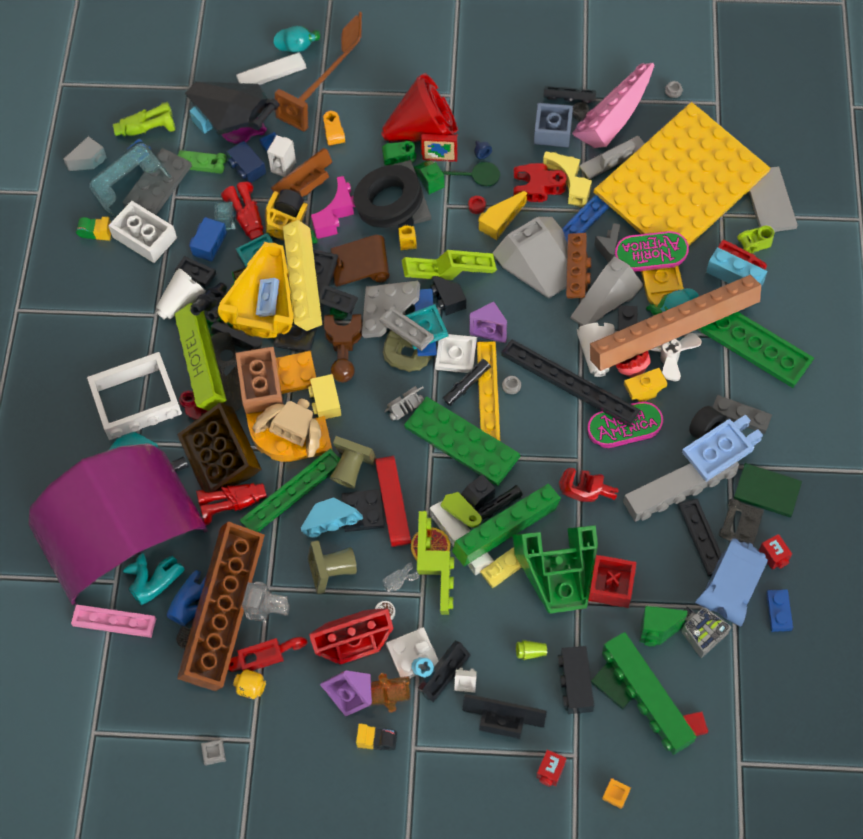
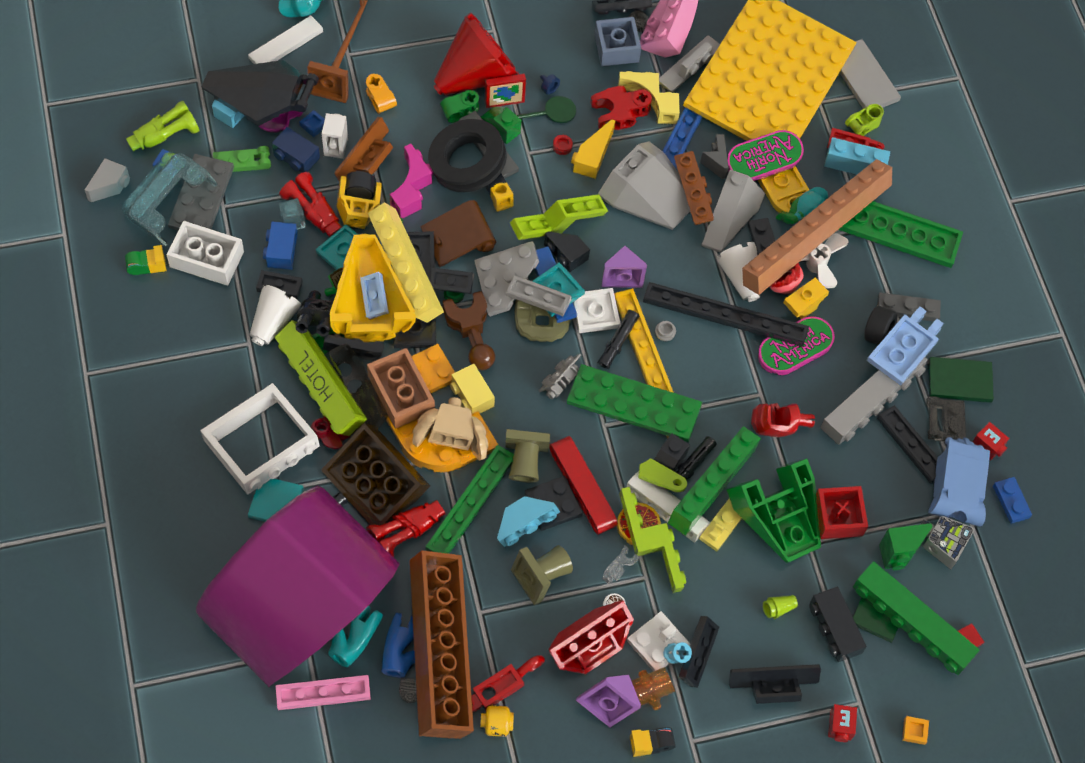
camera: 25 degrees left, 0 degrees up
(259, 602) = (484, 627): clear brick -> none
(465, 680) = (724, 655): white tile -> none

